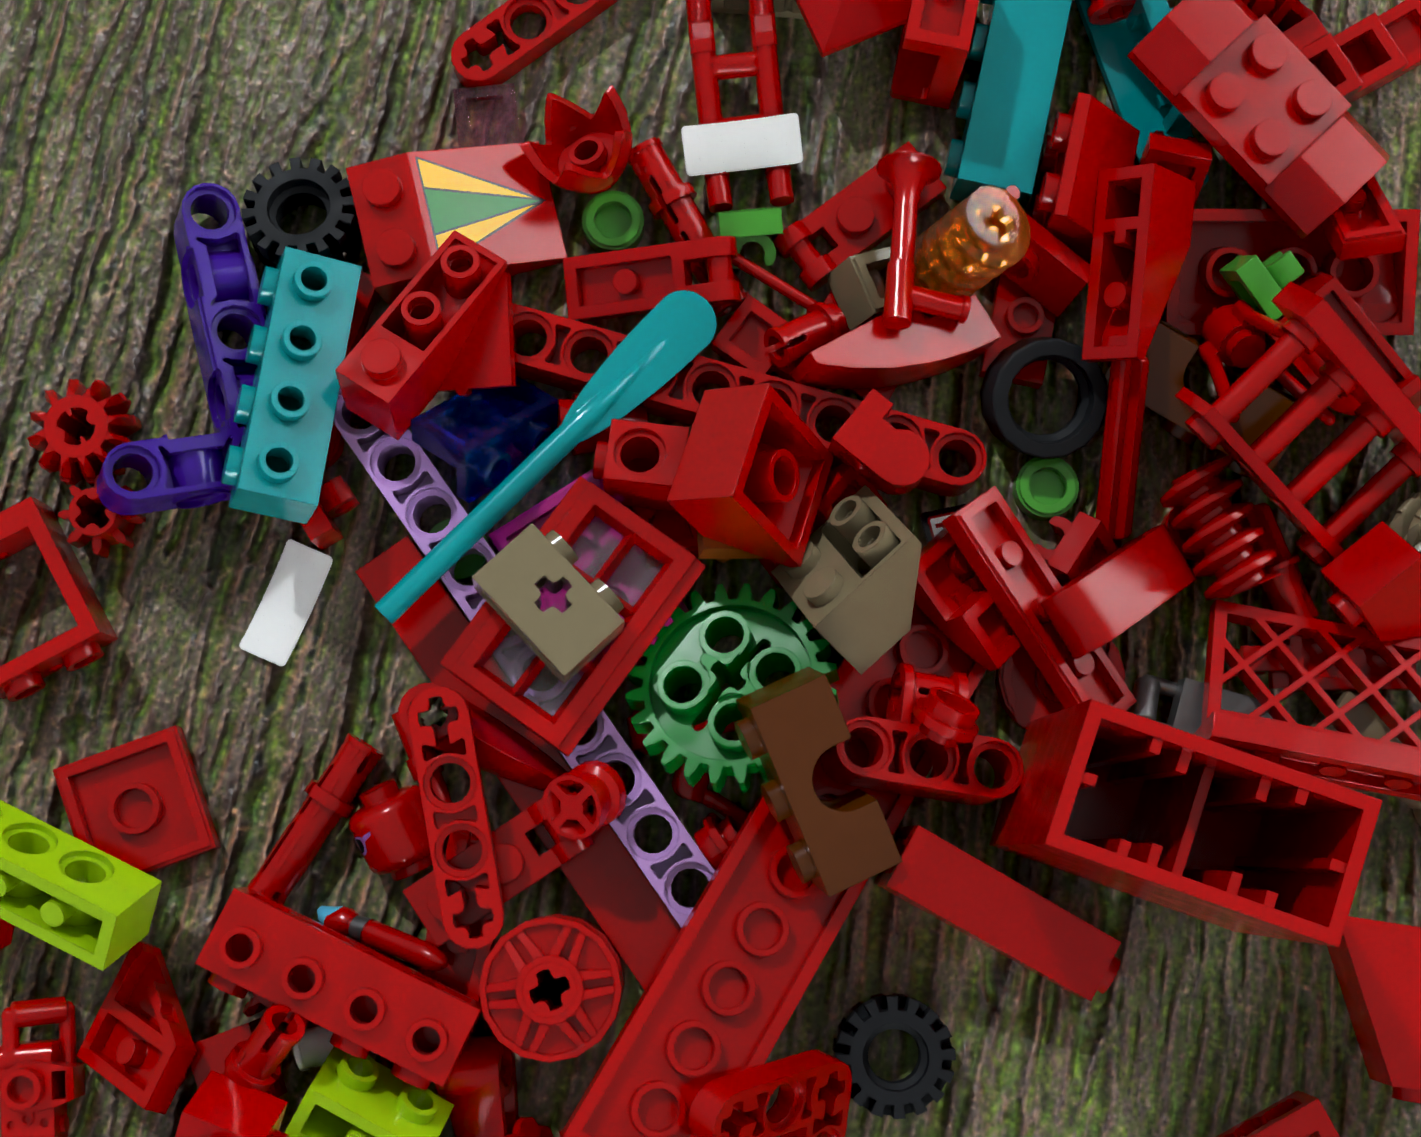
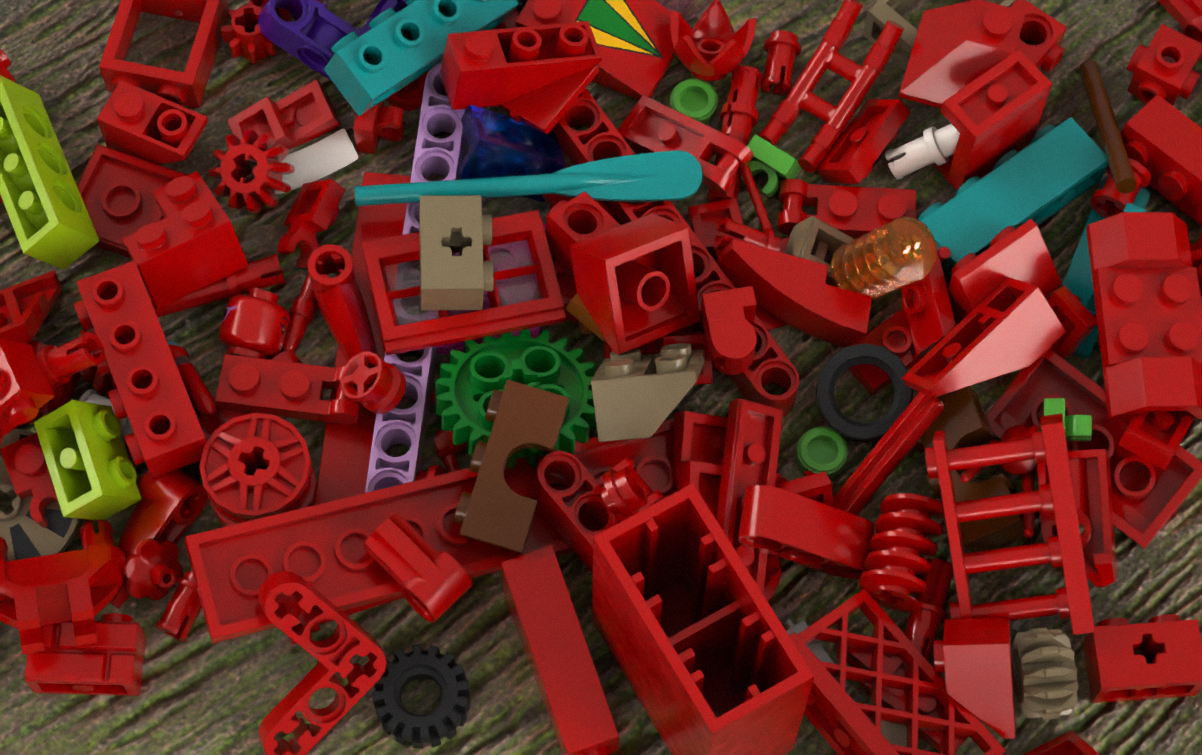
camera: 45 degrees right, 15 degrees down
(95, 709) = (149, 125): none -> red slope
(218, 666) = (267, 173): none -> red gear
(224, 584) = (292, 119): none -> red slope
(262, 810) = (186, 247): none -> red brick
(342, 663) = (311, 213): none -> red plate
(447, 817) = (287, 327): red beam -> none
(660, 106) = (780, 59): none -> red pin
(742, 144) = (807, 113): white sticker -> none
(820, 102) = (863, 141): none -> red plate
(824, 960) = (427, 578): none -> red piece
(892, 86) = (931, 148): none -> white pin
(909, 175) = (890, 198): red piece -> none

